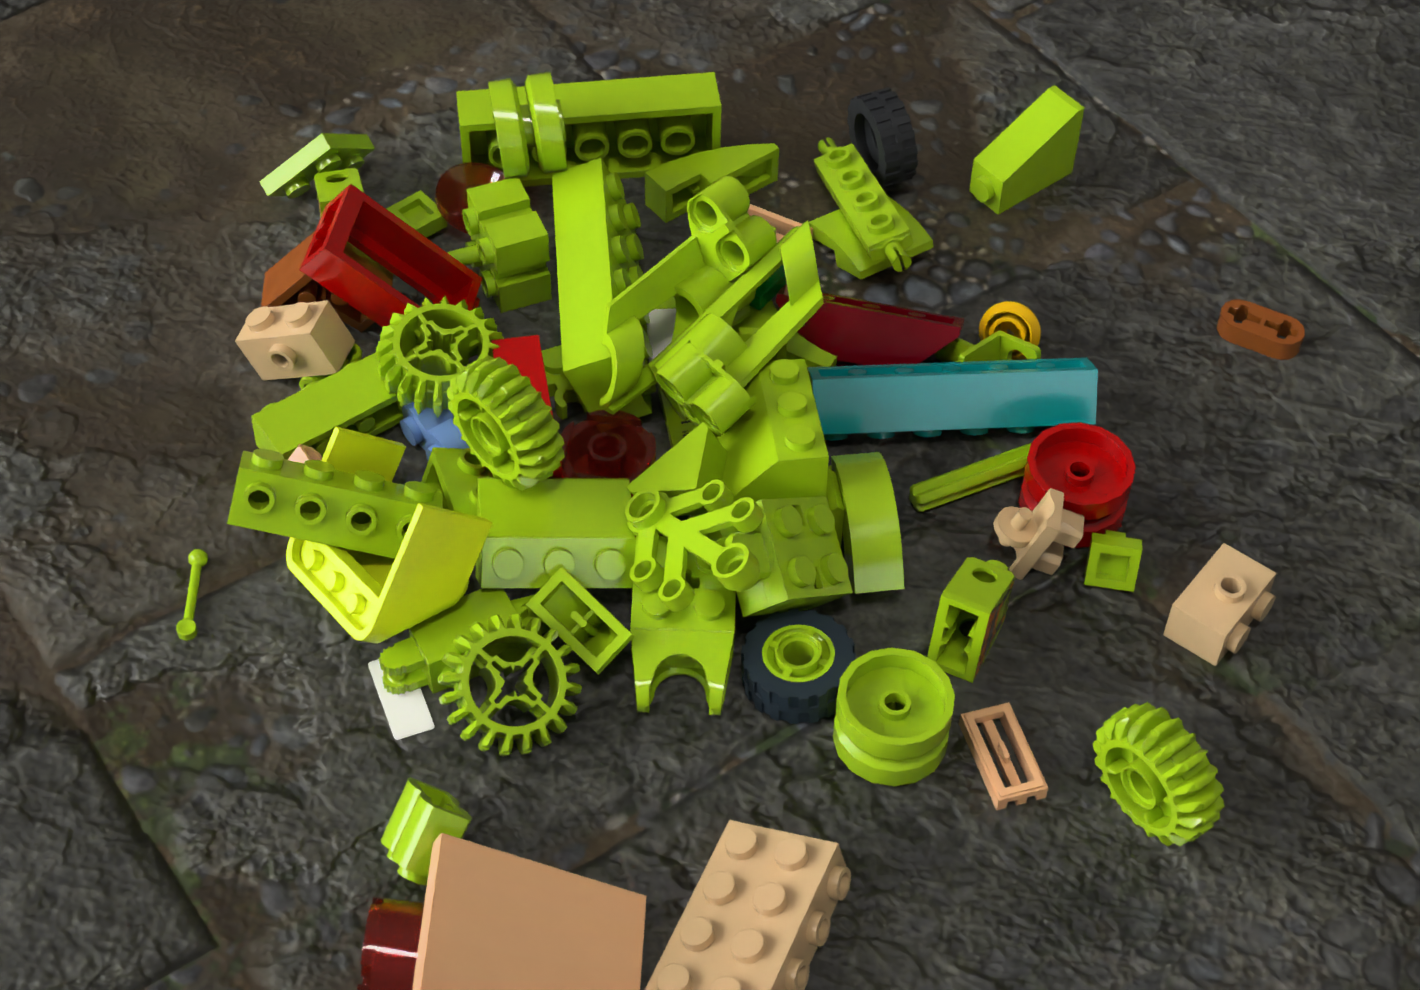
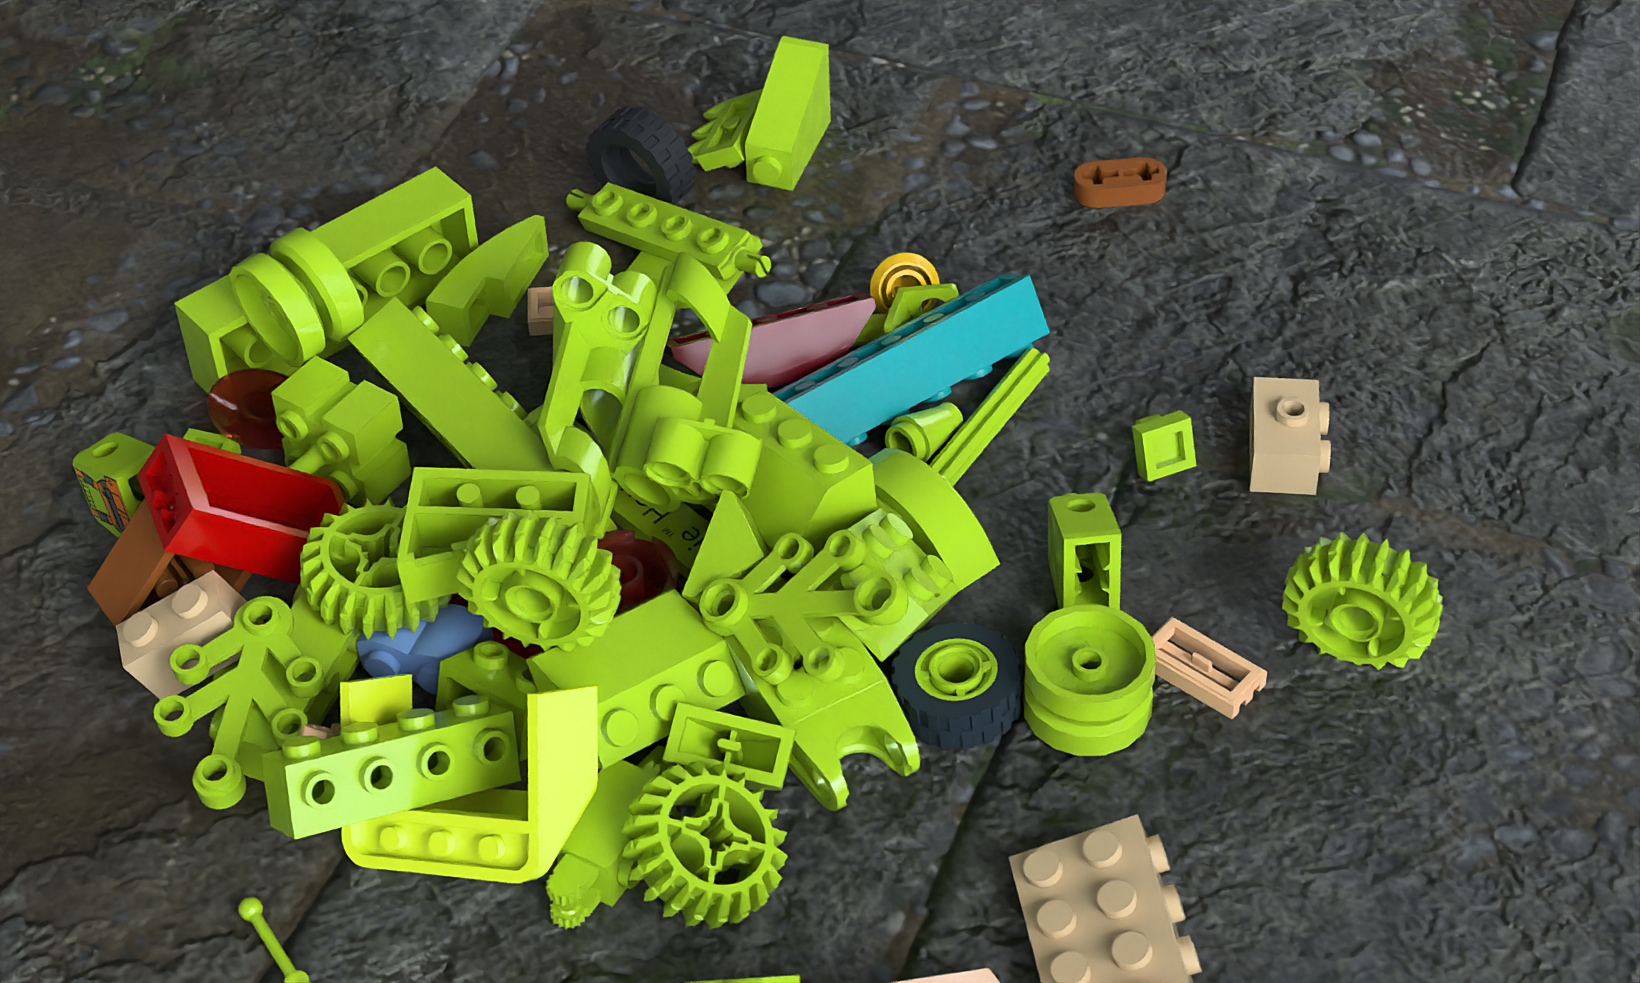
camera: 30 degrees left, 5 degrees down
(286, 397) = (240, 690): none -> lime plant
(321, 155) = (66, 436): lime plate -> none
(405, 712) = (597, 937): white sticker -> none
(557, 368) = (453, 502): none -> lime wedge
(933, 455) = (924, 430): none -> lime cone
(968, 145) = (725, 135): none -> lime plate
(1039, 533) = (1081, 454): tan hips -> none
(1090, 470) = (1080, 392): red wheel -> none

